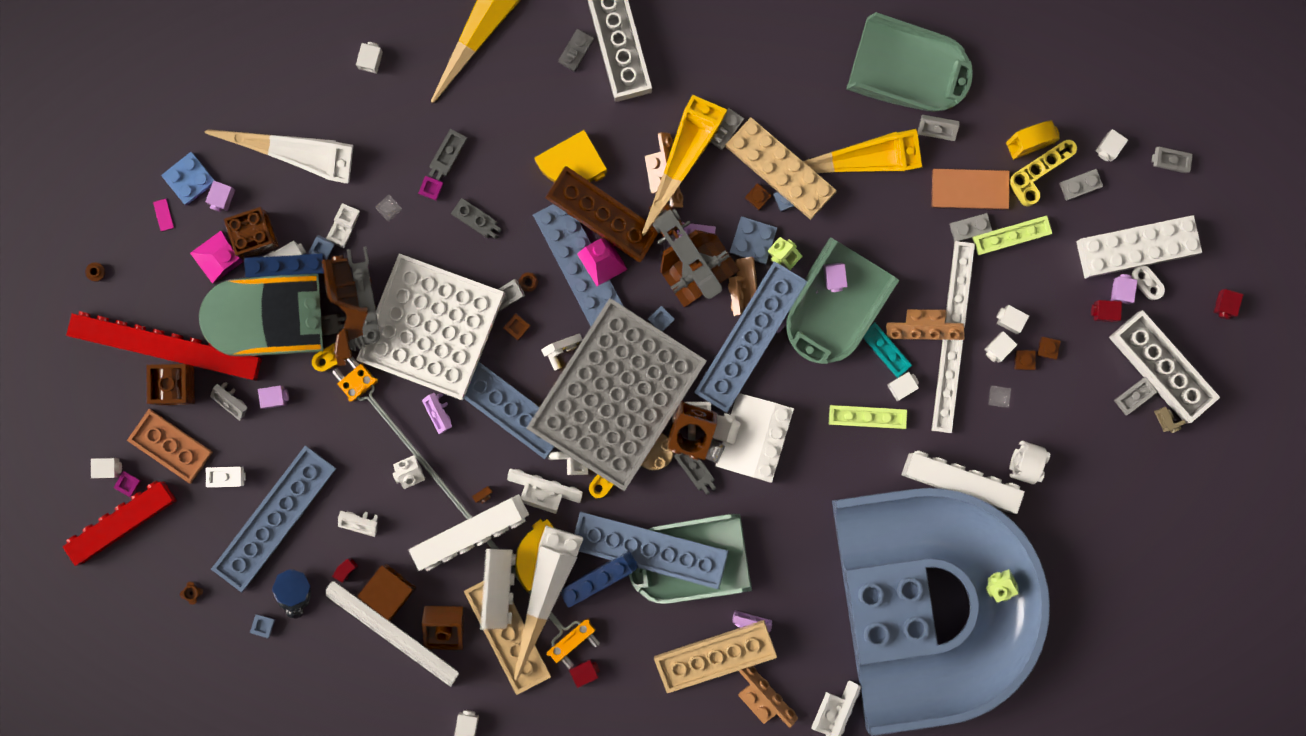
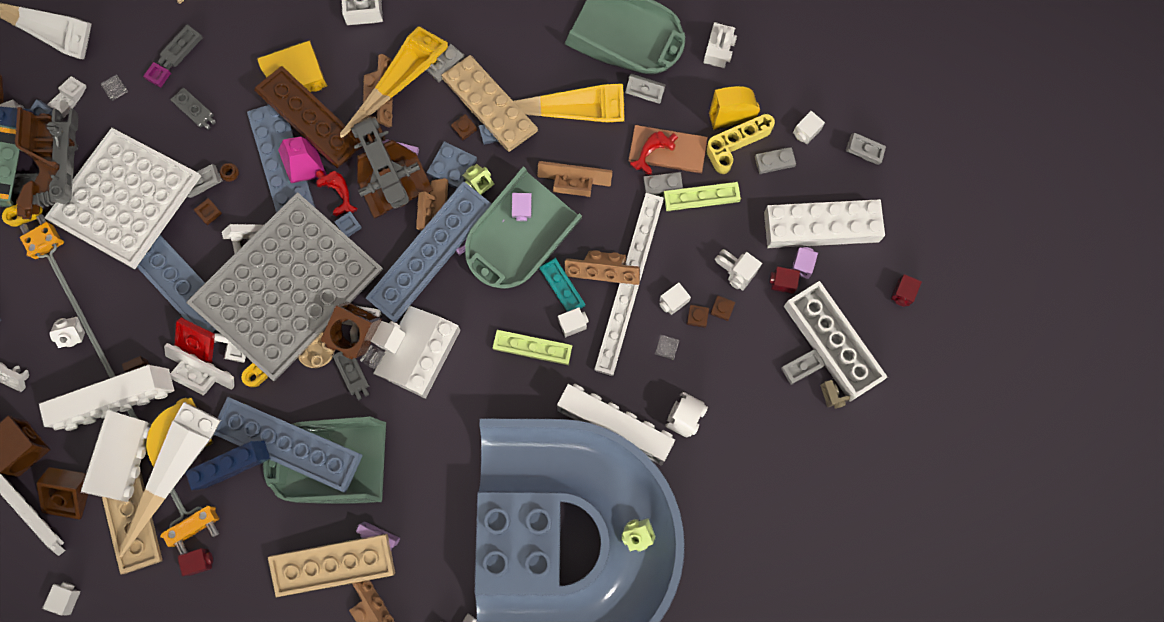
camera: 10 degrees right, 10 degrees down
(436, 412) = (110, 277): lavender plate -> none
(537, 461) = (194, 340): none -> red plate
(641, 276) = (338, 183): none -> red animal
(880, 237) = (574, 179): none -> medium nougat bracket
(957, 186) = (656, 140): none -> red animal
(1008, 67) = (719, 45): none -> white brick
(1012, 319) = (690, 274): white brick -> none
(1064, 309) = (740, 270): none -> white brick
(1149, 281) = (830, 259): white plate -> none

